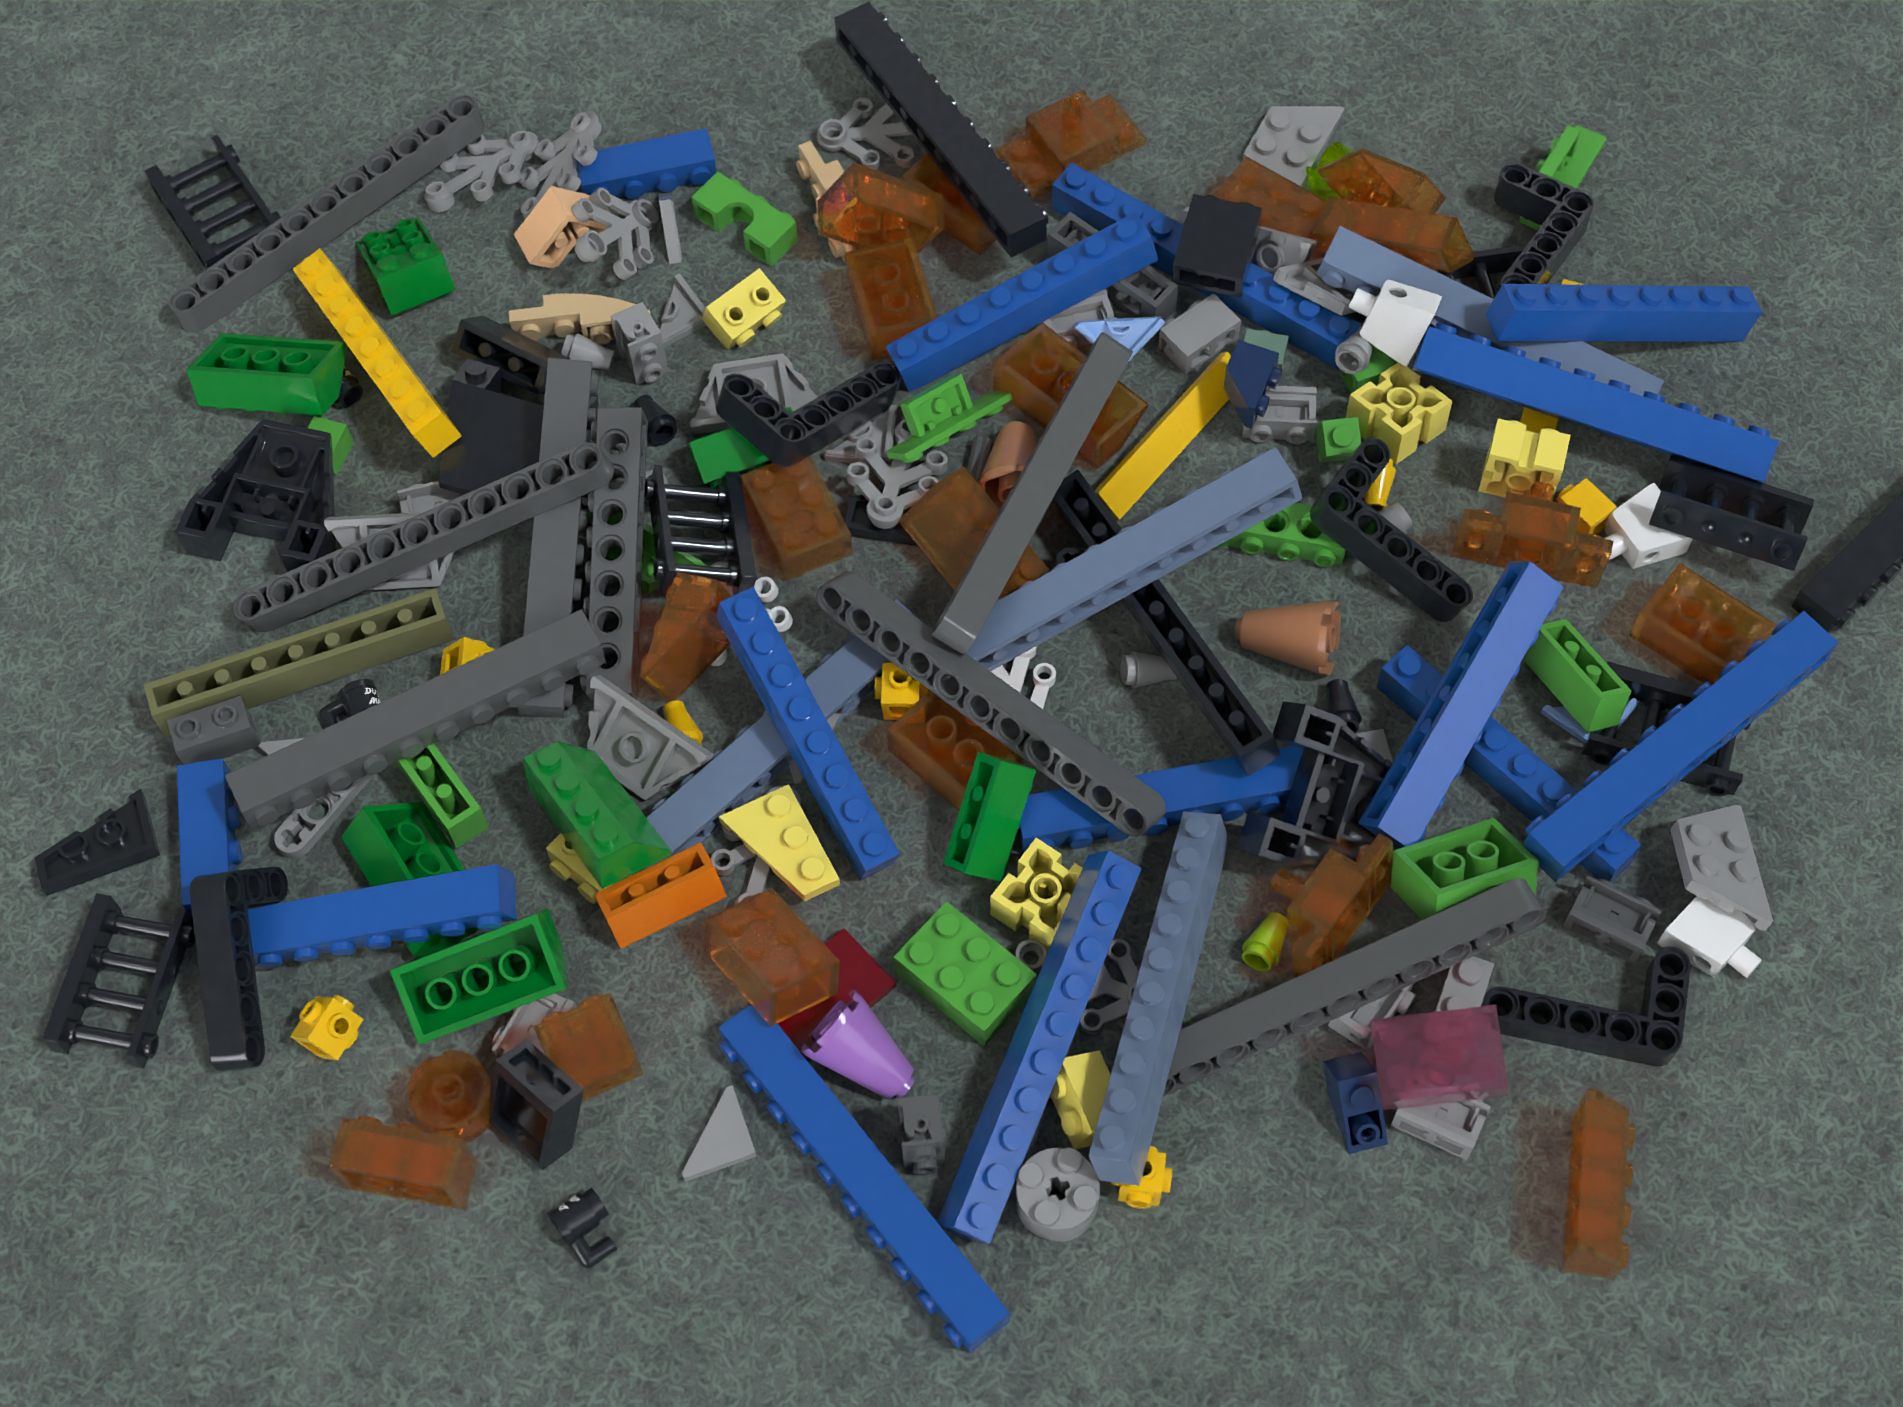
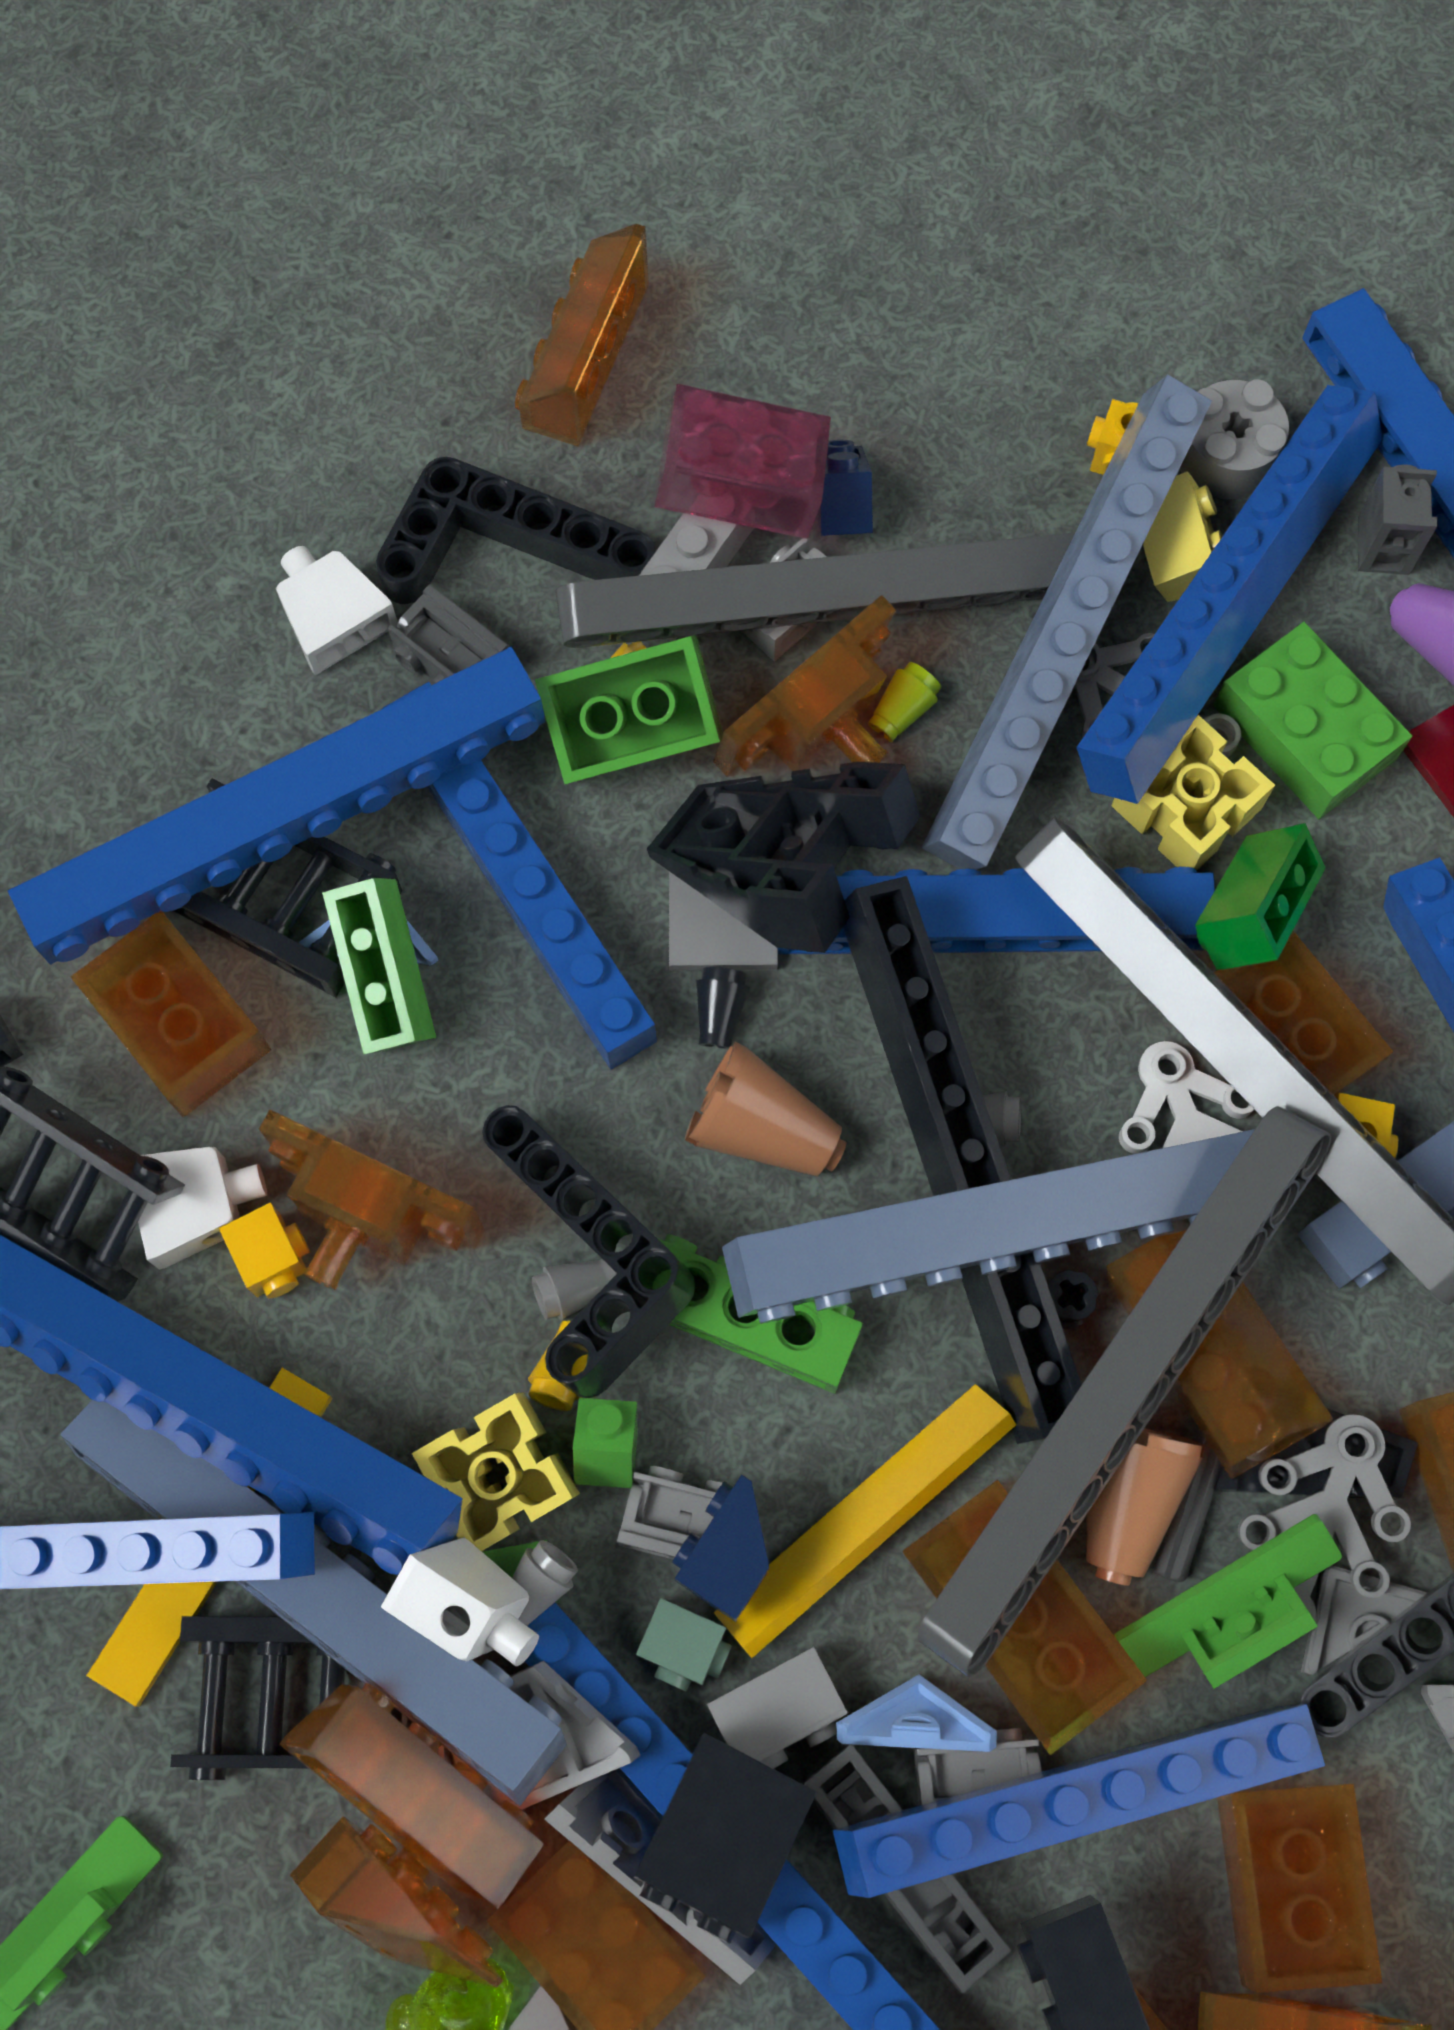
camera: 170 degrees left, 10 degrees up
(1462, 704) = (563, 911): brick -> none
(1522, 458) = (331, 1329): light yellow brick -> none
(1554, 206) = (143, 1757): black beam -> none
(1721, 862) = (284, 678): light grey wing -> none

